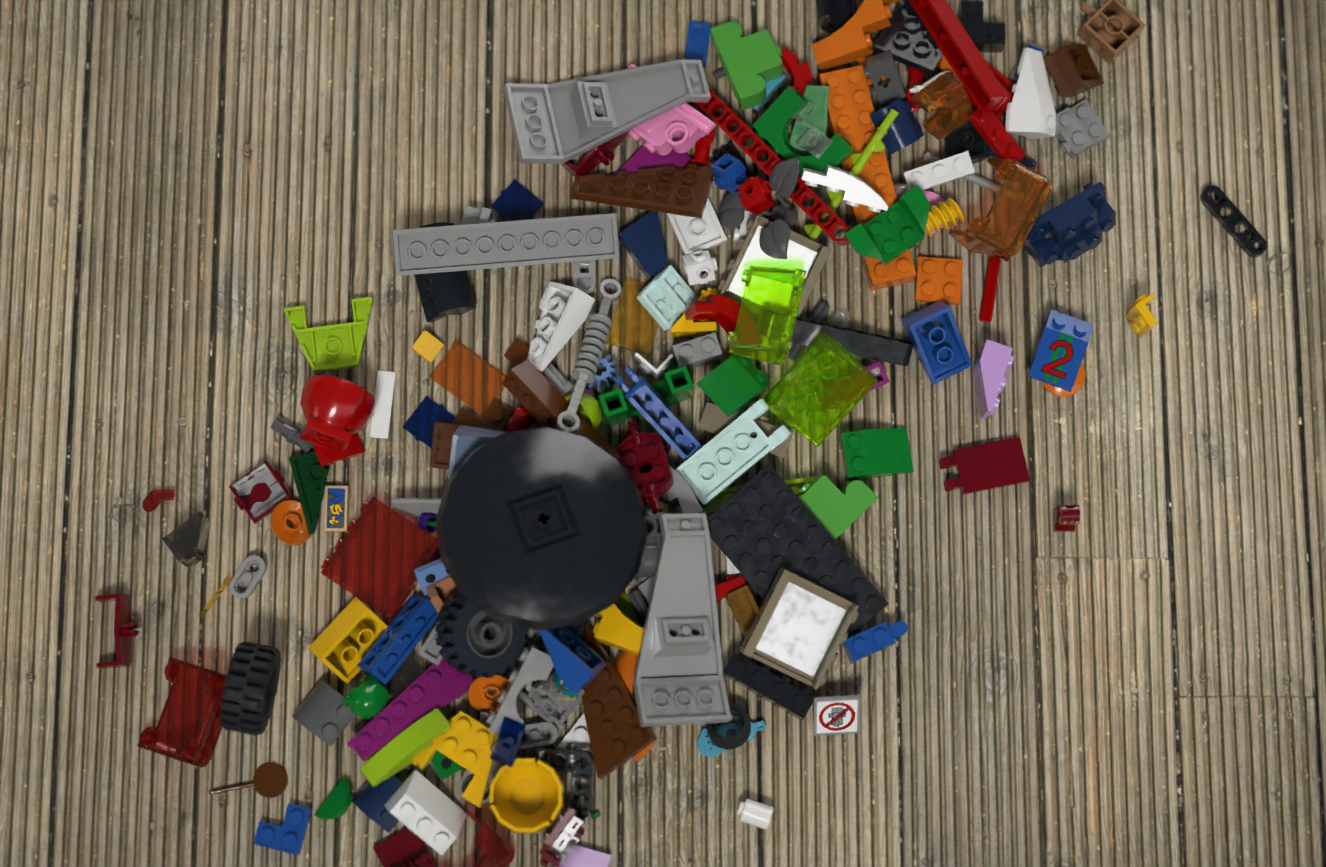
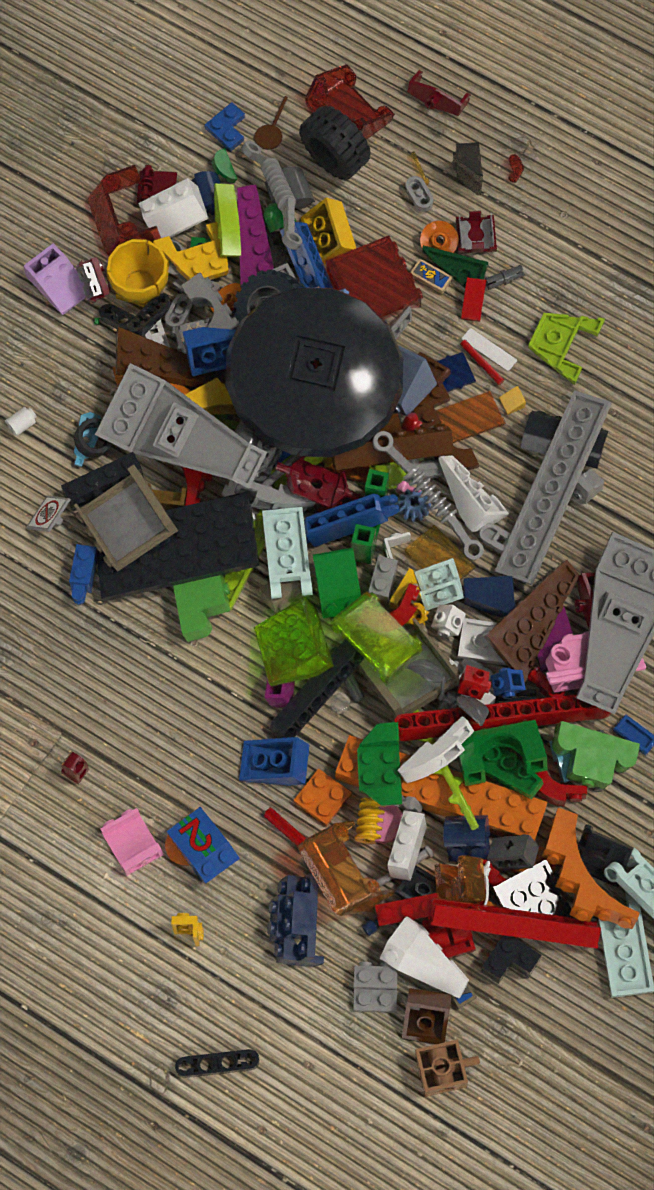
camera: 130 degrees right, 10 degrees down
(334, 411) = (498, 299): red plate -> none
(358, 687) = (280, 190): none -> light grey piece
(402, 401) = (482, 362): none -> red bar
(507, 742) = (181, 275): clear blue slope -> none
(517, 203) = (584, 526): clear blue piece -> none
(812, 139) = (495, 754): clear panel -> none
(875, 453) = (219, 662): green slope -> none
(987, 466) = (154, 739): dark red tile -> none
(989, 371) = (219, 778): lavender slope -> none
(1095, 421) = (131, 841): none -> bright pink panel

